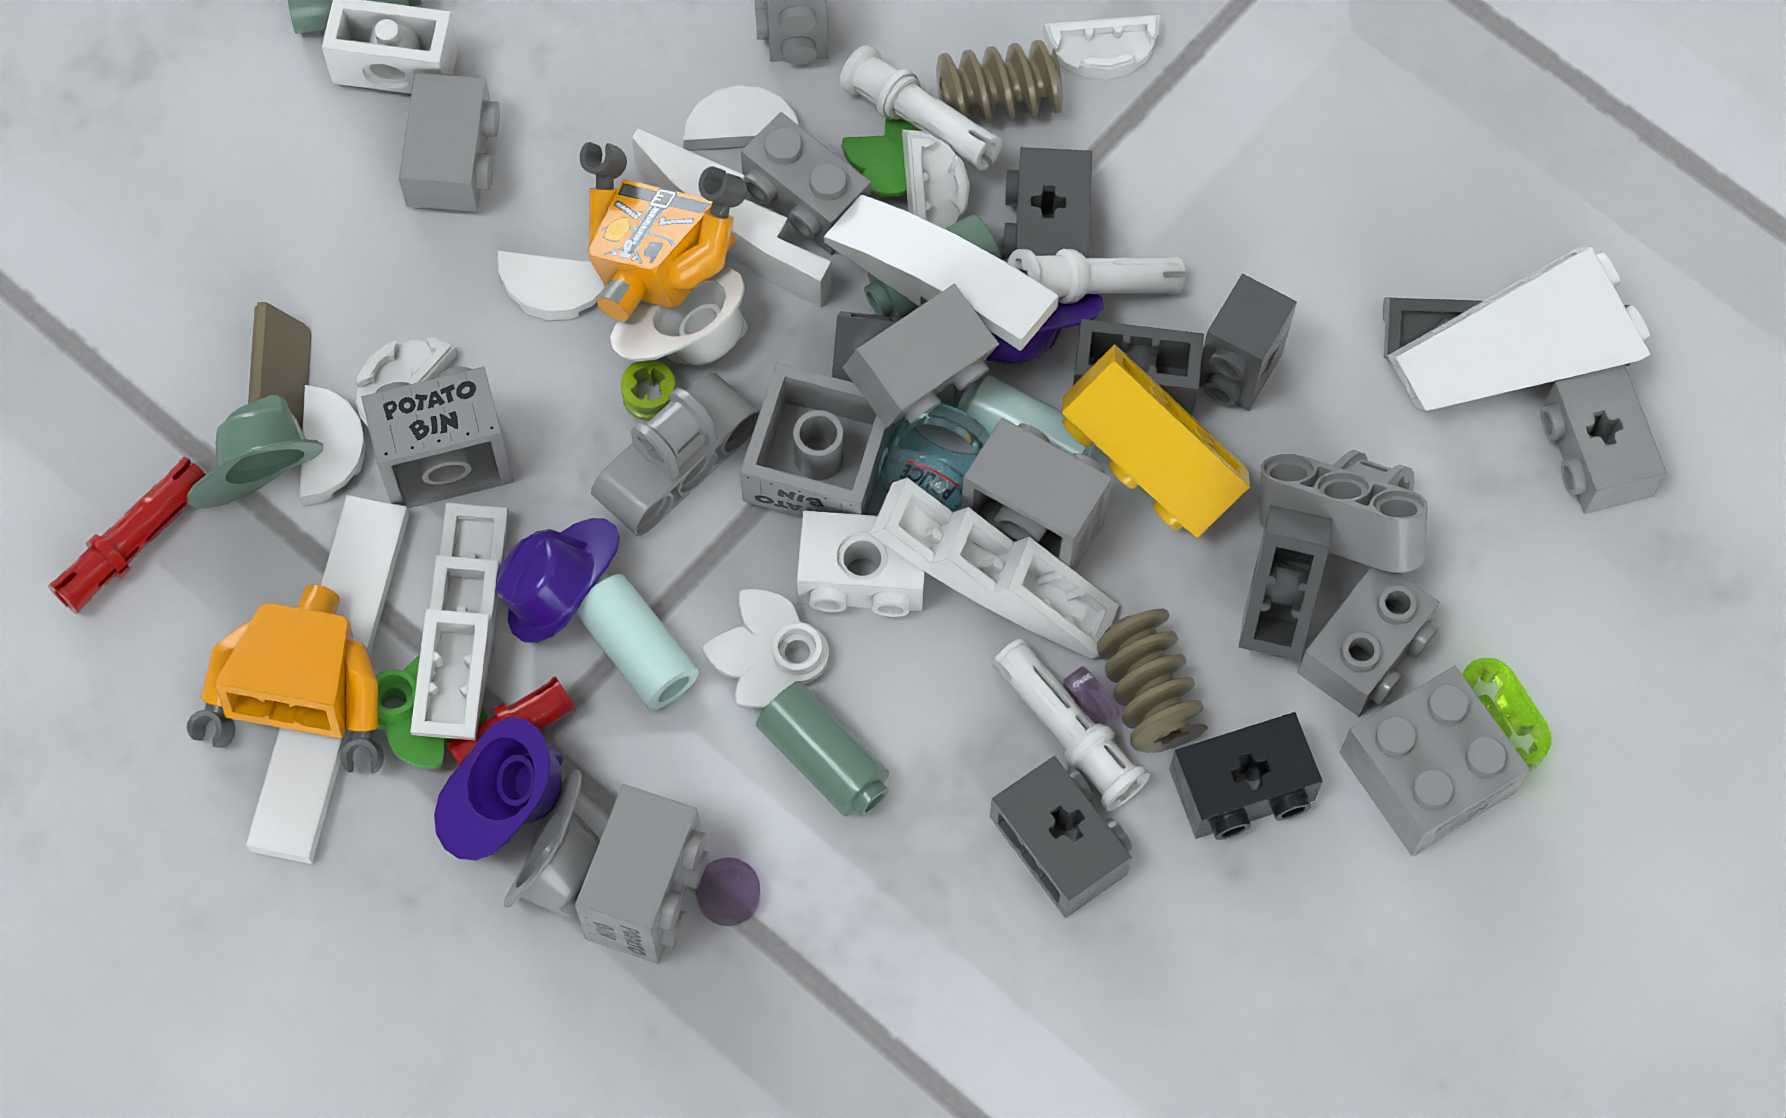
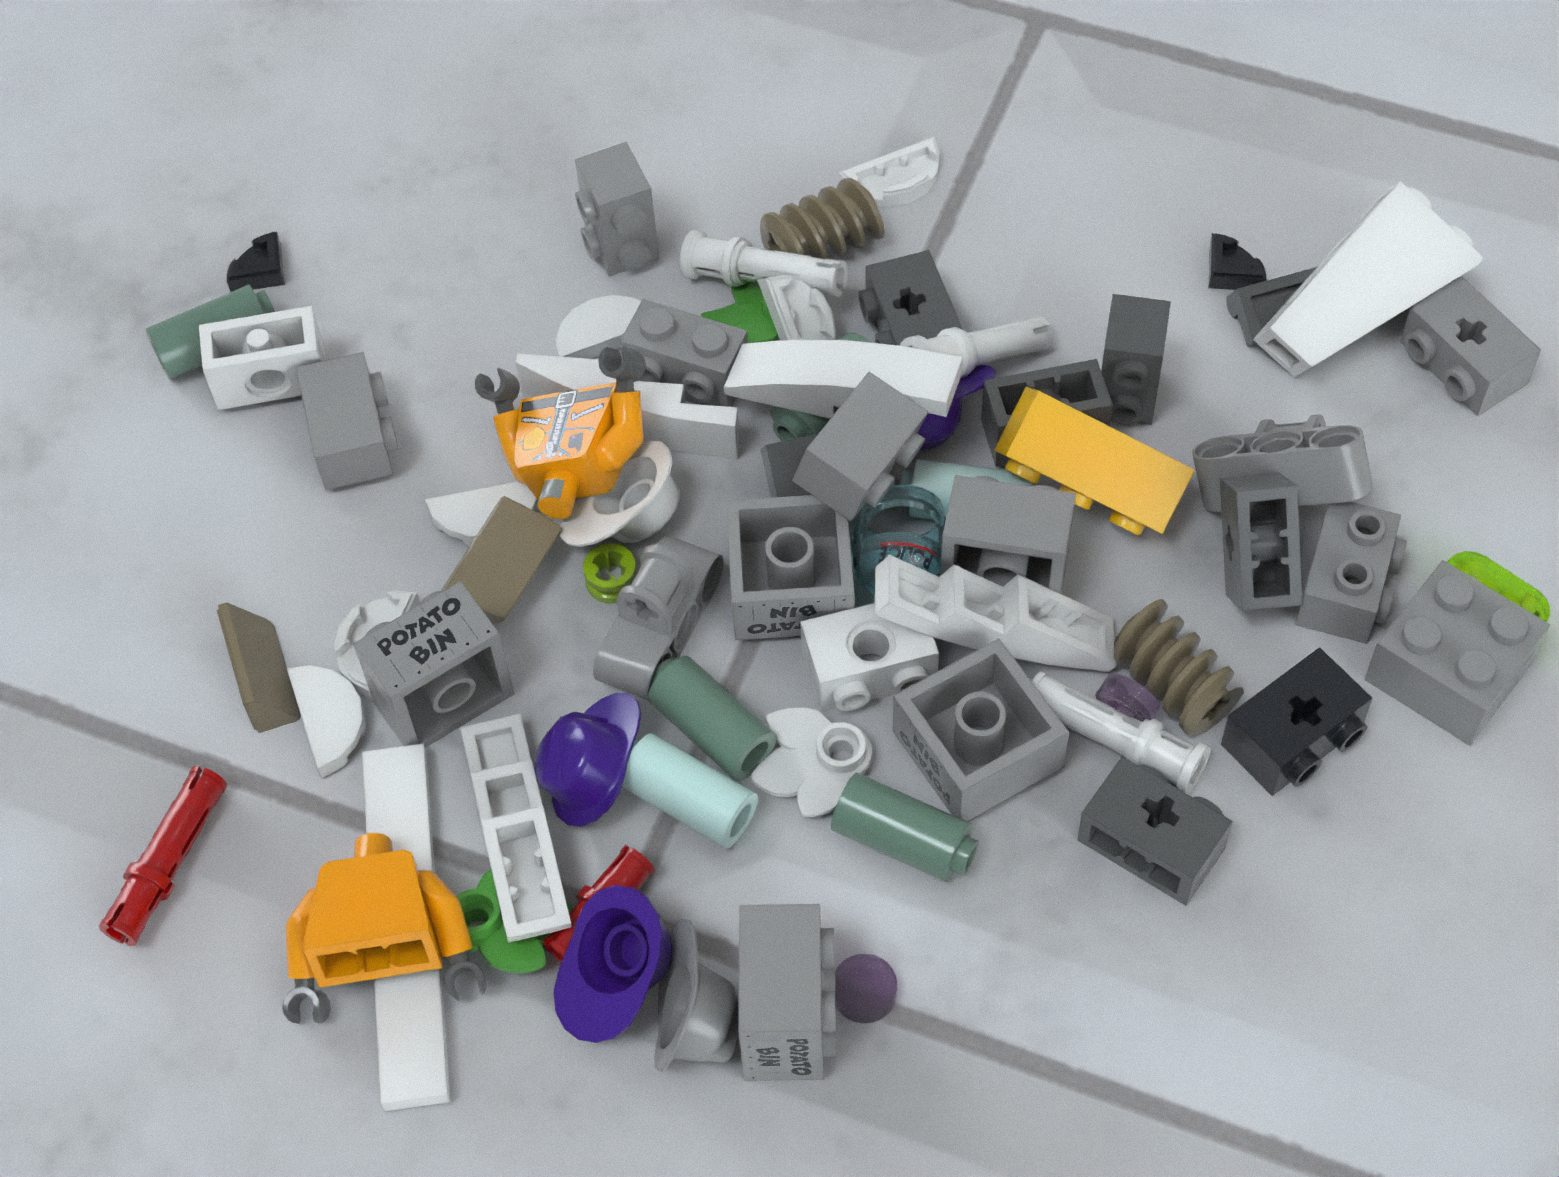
camera: 15 degrees left, 10 degrees down
(251, 451) = (260, 737): sand green piece -> none
(545, 343) = (504, 557): none -> dark tan slope
(685, 574) = (710, 716): none -> sand green brick
(931, 681) = (979, 731): none -> light grey brick
(1407, 264) = (1231, 265): none -> black tile

